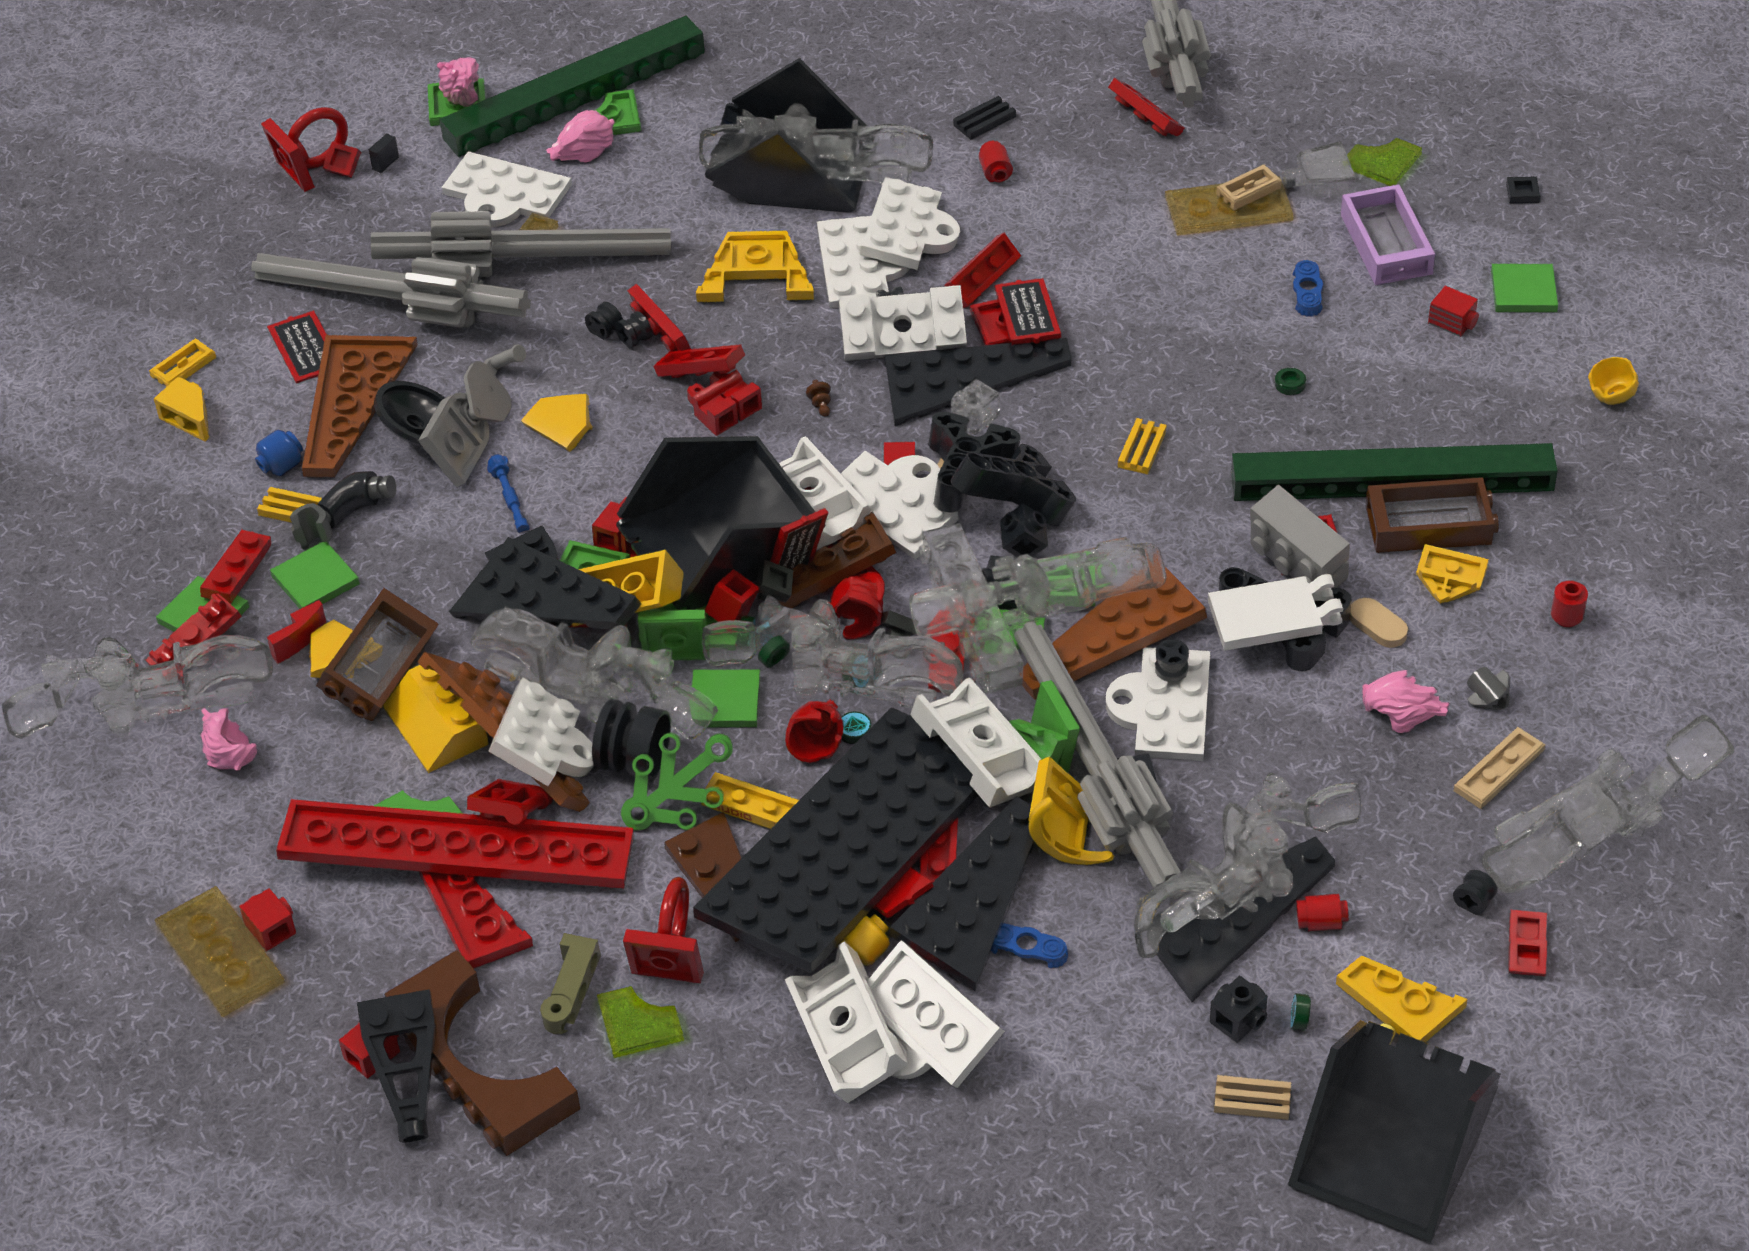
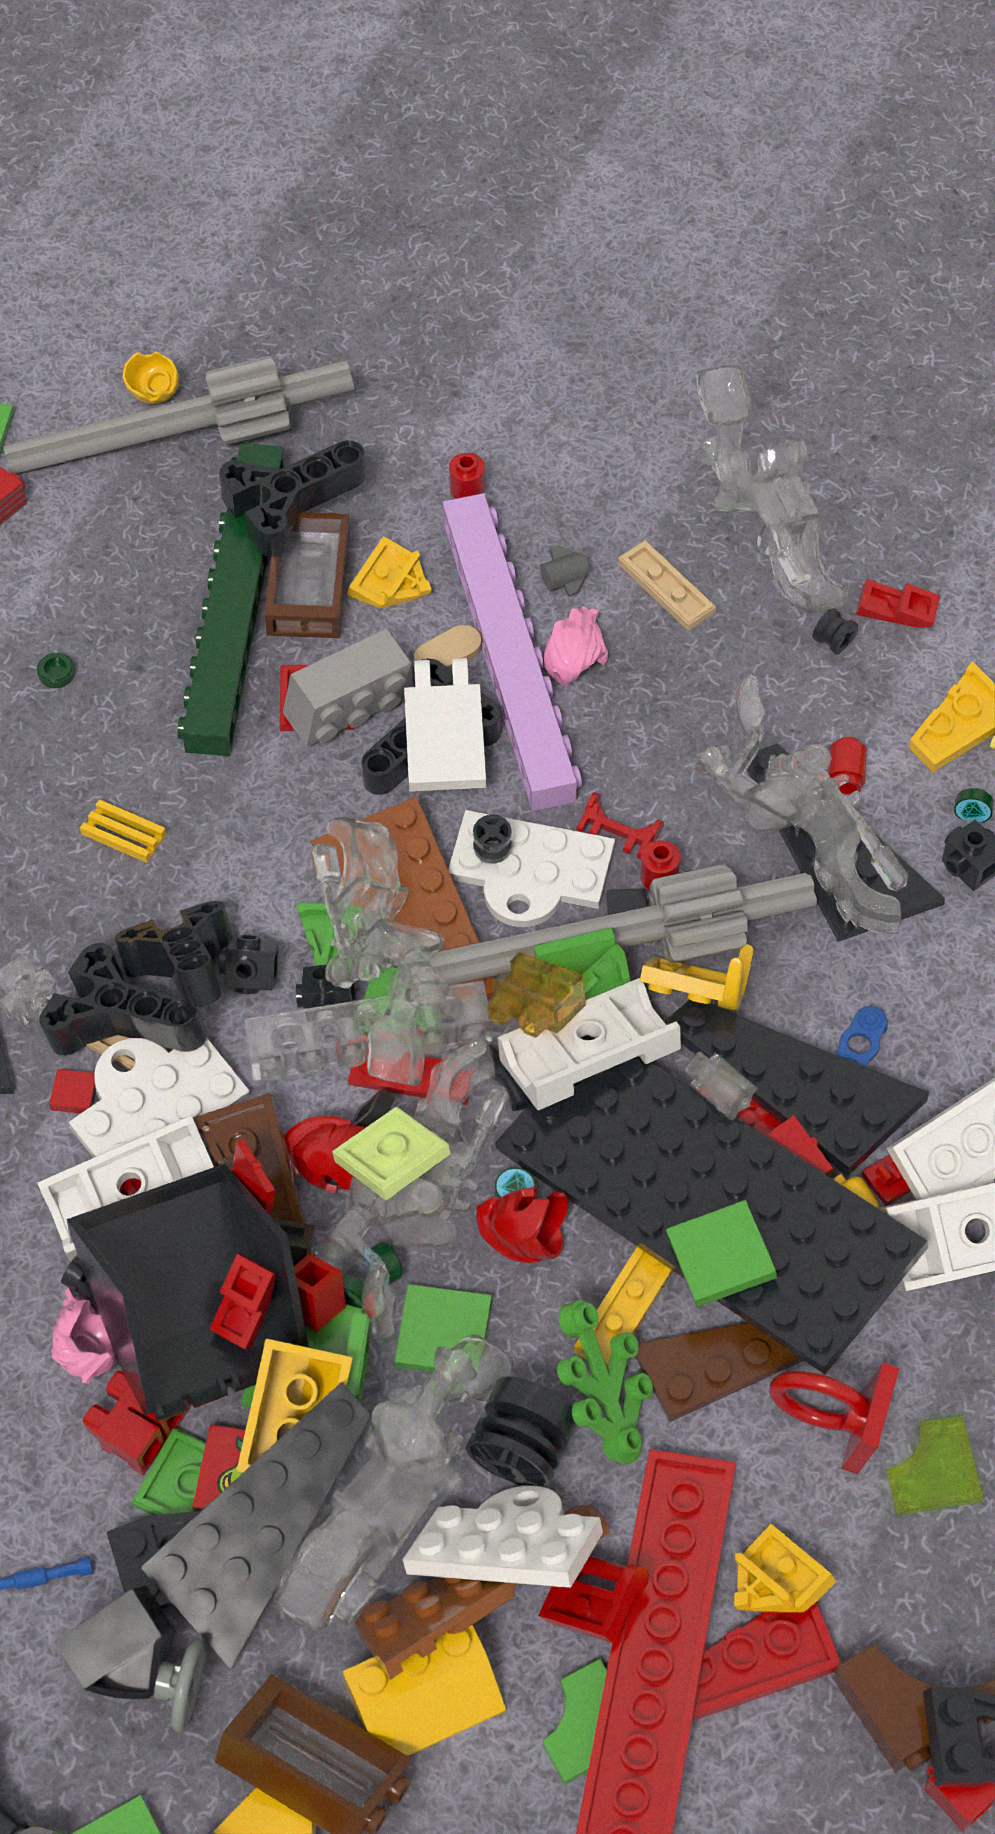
camera: 85 degrees left, 10 degrees up
(446, 543) = (126, 1654): none -> piece
(535, 917) = (778, 1576): none -> yellow slope
(579, 964) = (882, 1539): olive leg -> none
(701, 552) = (245, 1301): none -> red slope
(787, 833) = (721, 1253): none -> bright green tile
(842, 613) = (391, 1153): none -> yellowish green tile
(947, 831) = (720, 1084): none -> clear hips
(1005, 691) = (537, 996): none -> clear yellow hips
(1175, 780) = (659, 860): none -> red brick
(1219, 741) = (595, 816): none -> red piece
(1410, 647) = (509, 653): none -> lavender brick
(1490, 470) = (277, 497): none -> black beam
(1594, 434) = (243, 401): none -> light grey axle

